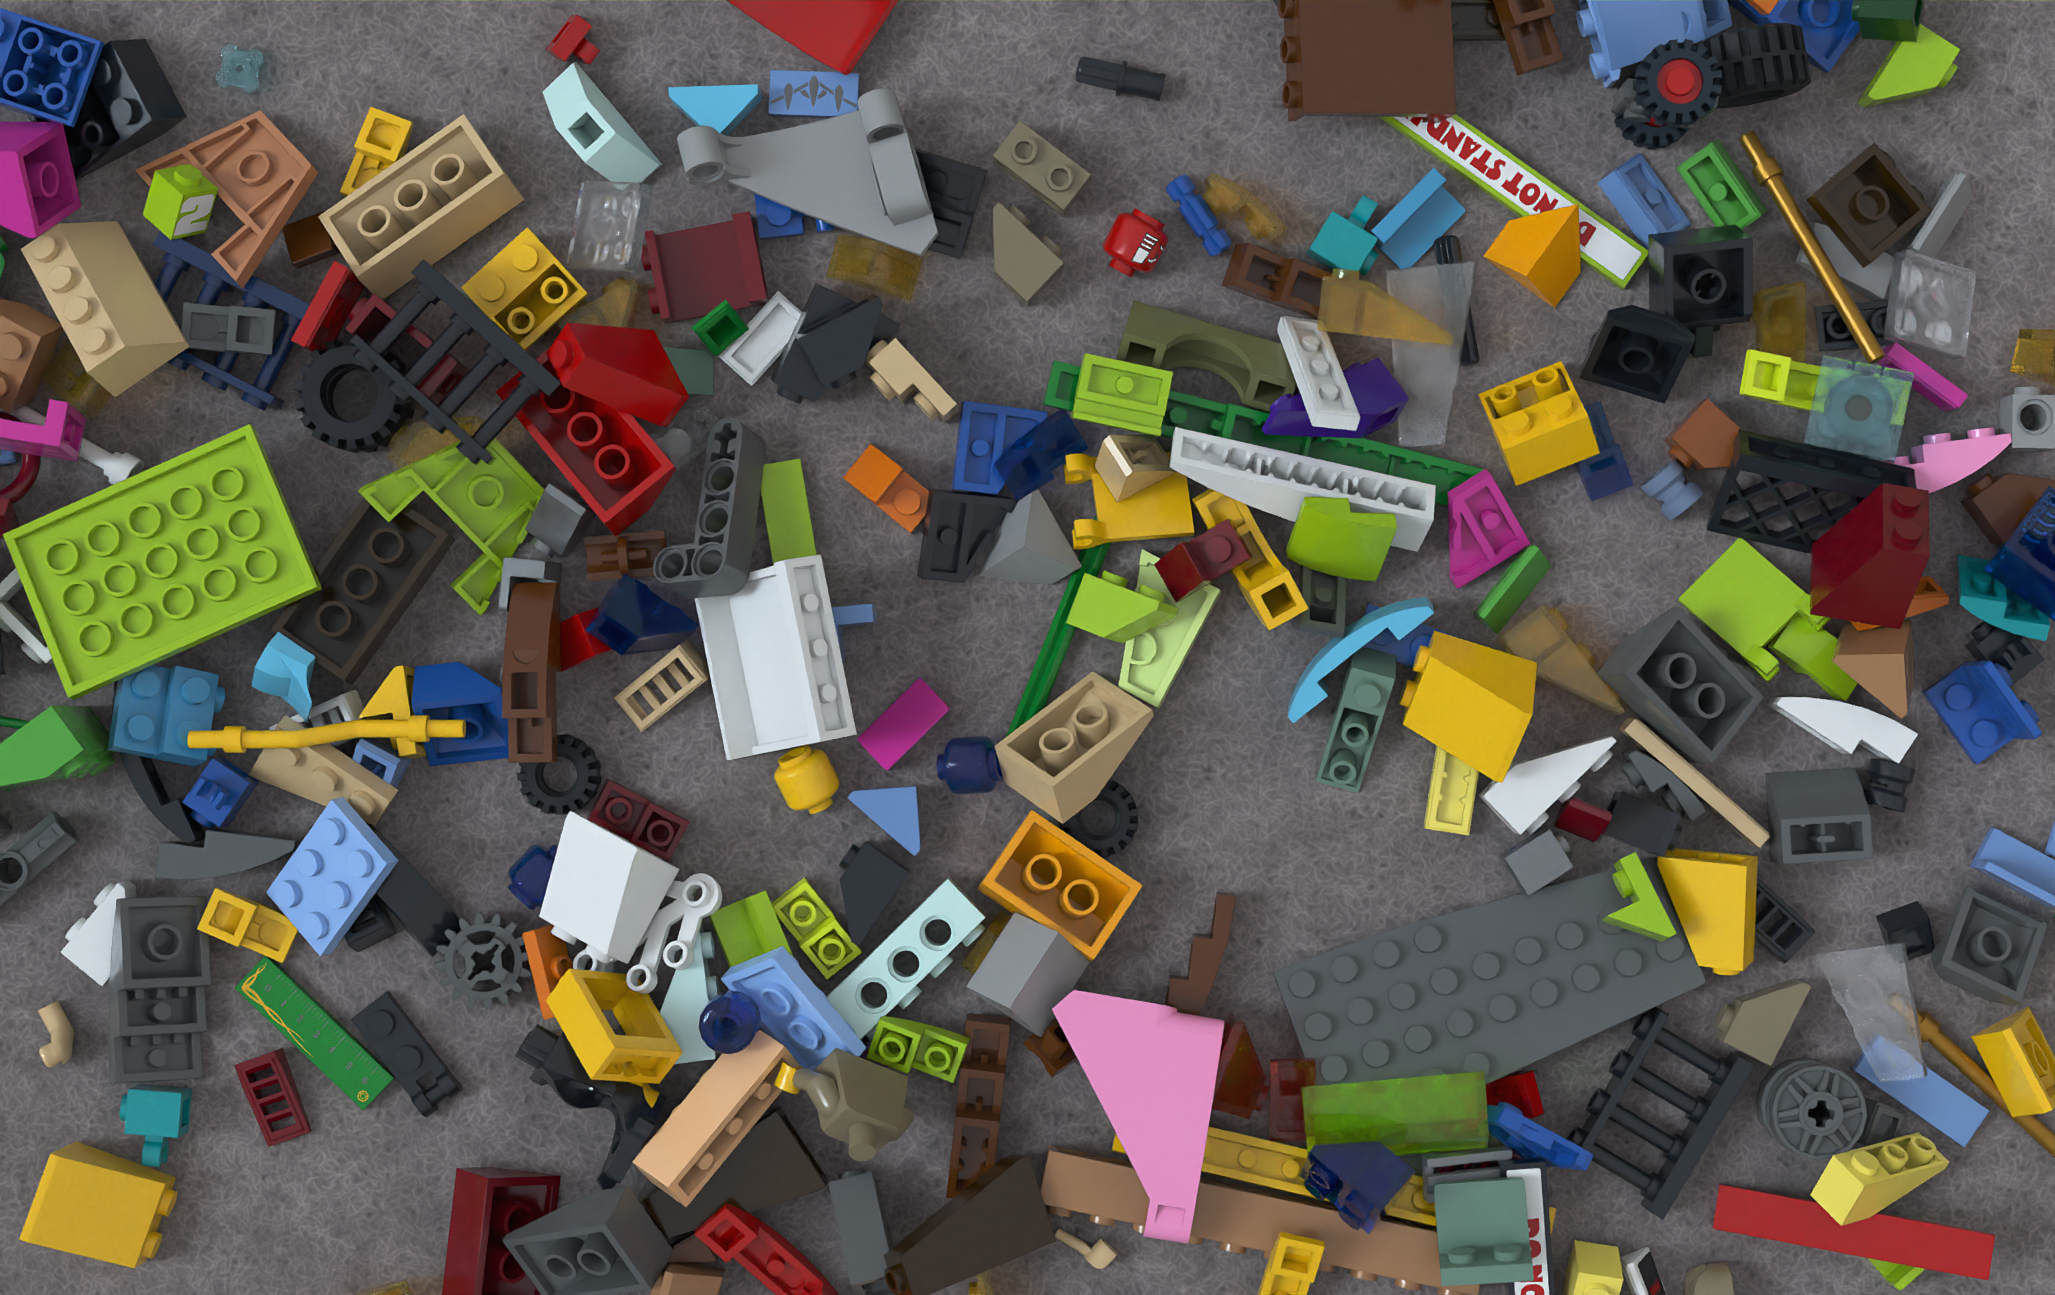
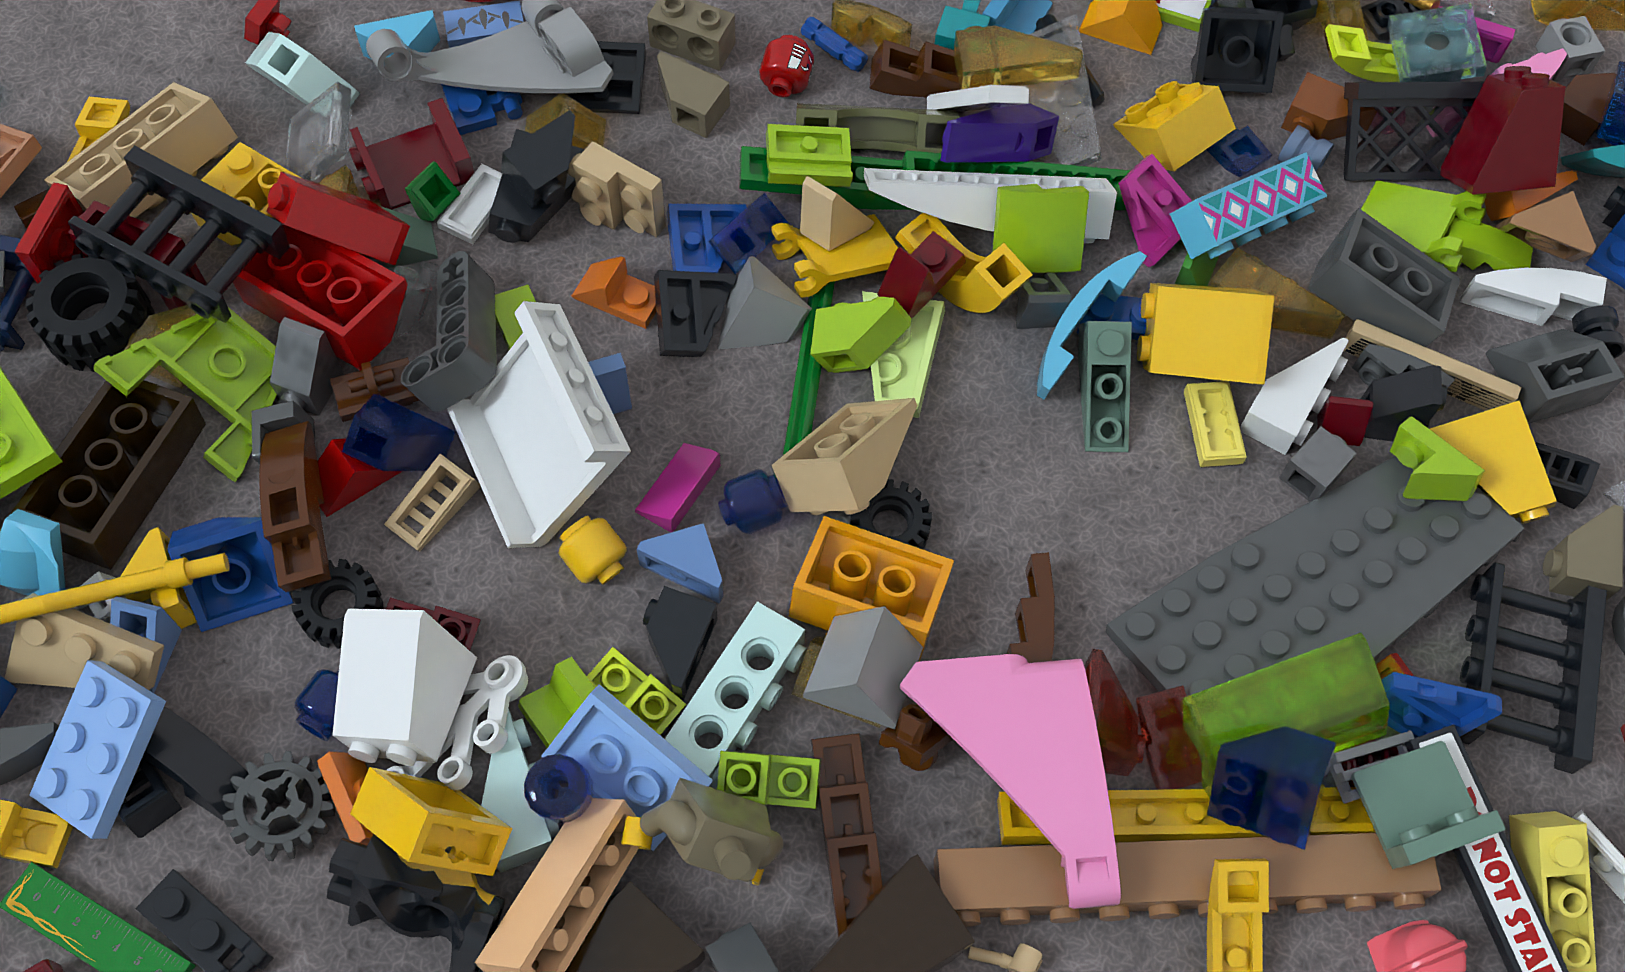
camera: 15 degrees left, 25 degrees down
(1573, 561) = (1248, 205): none -> medium azure brick

